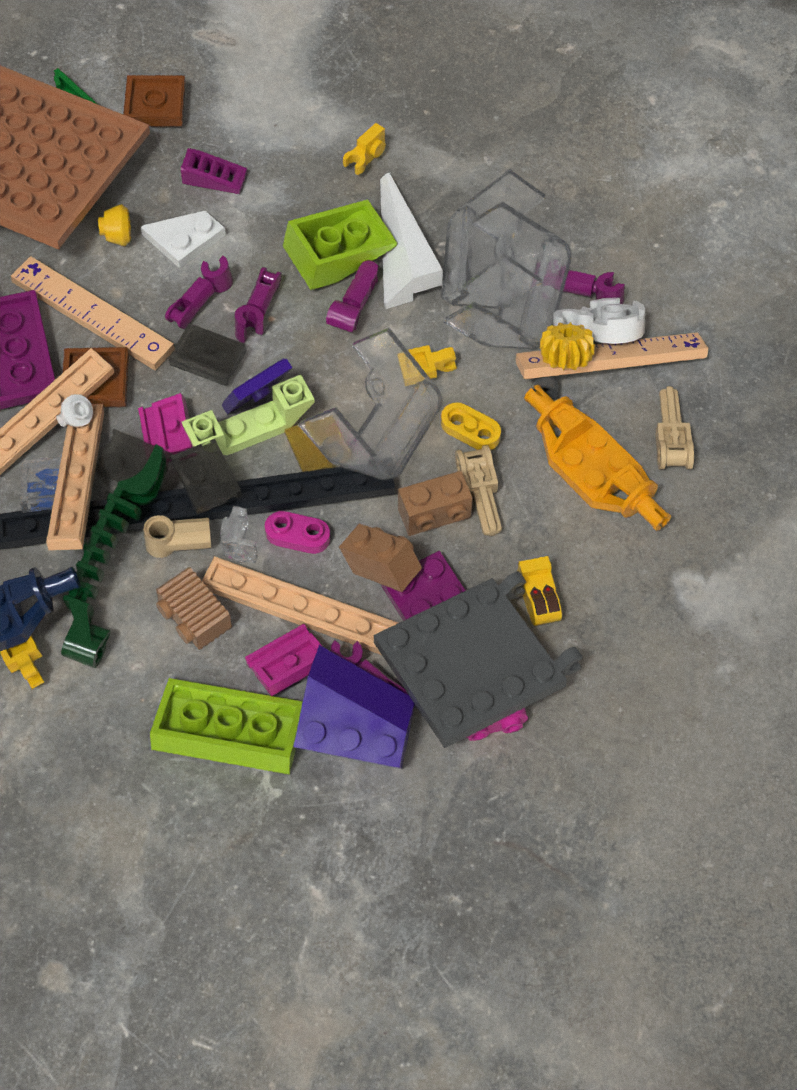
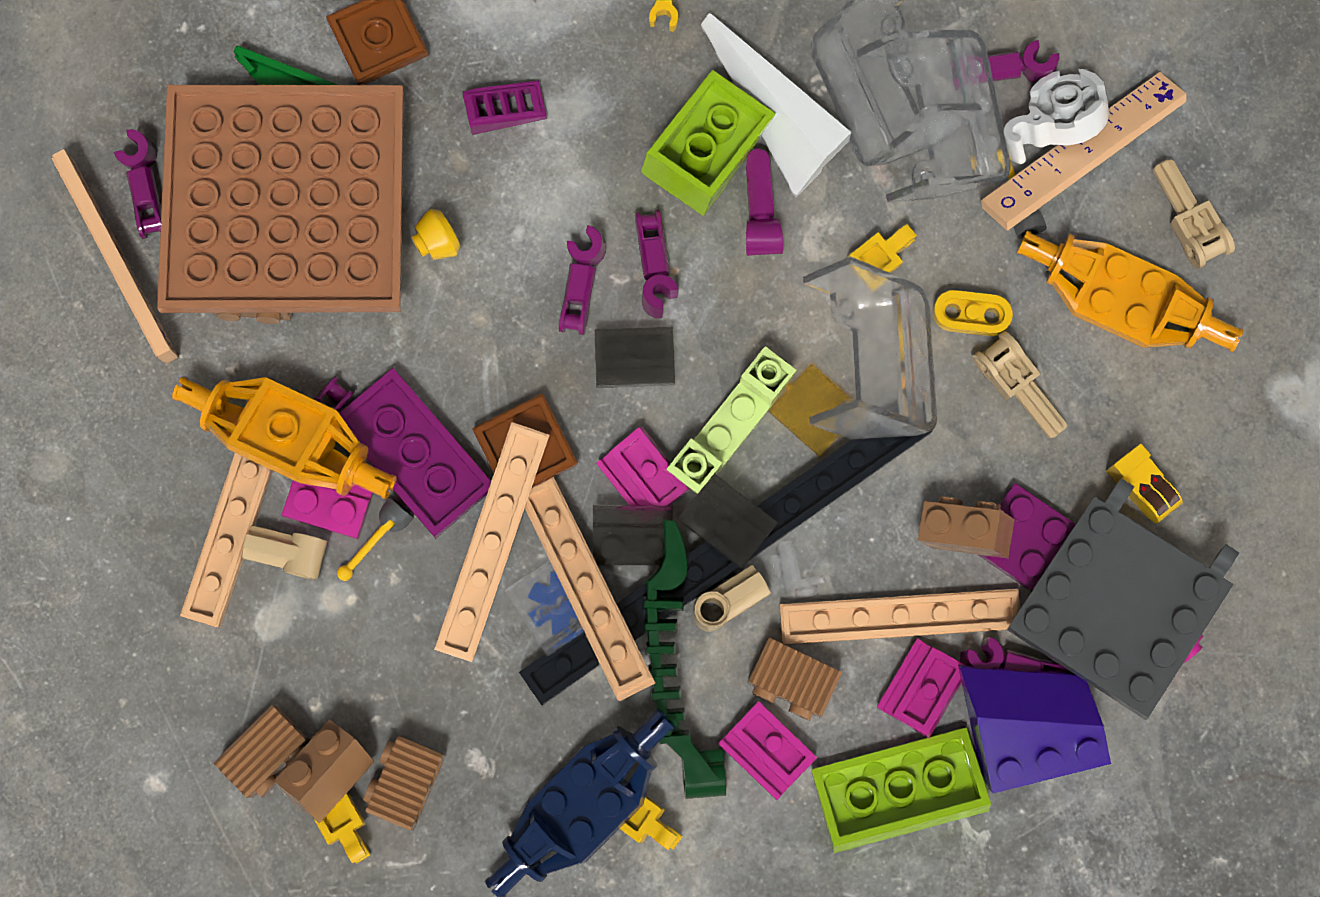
camera: 25 degrees left, 20 degrees up
(75, 411) = (538, 509): white plate -> none
(93, 313) = (470, 362): light nougat tile -> none
(144, 650) = (767, 750): none -> dark pink plate
(184, 236) = (517, 209): white wing -> none
(256, 387) = (721, 381): dark purple plate -> none
(295, 533) = (851, 530): dark pink plate -> none
(434, 503) = (984, 430): medium nougat brick -> none
(567, 346) = (1043, 174): yellow gear -> none

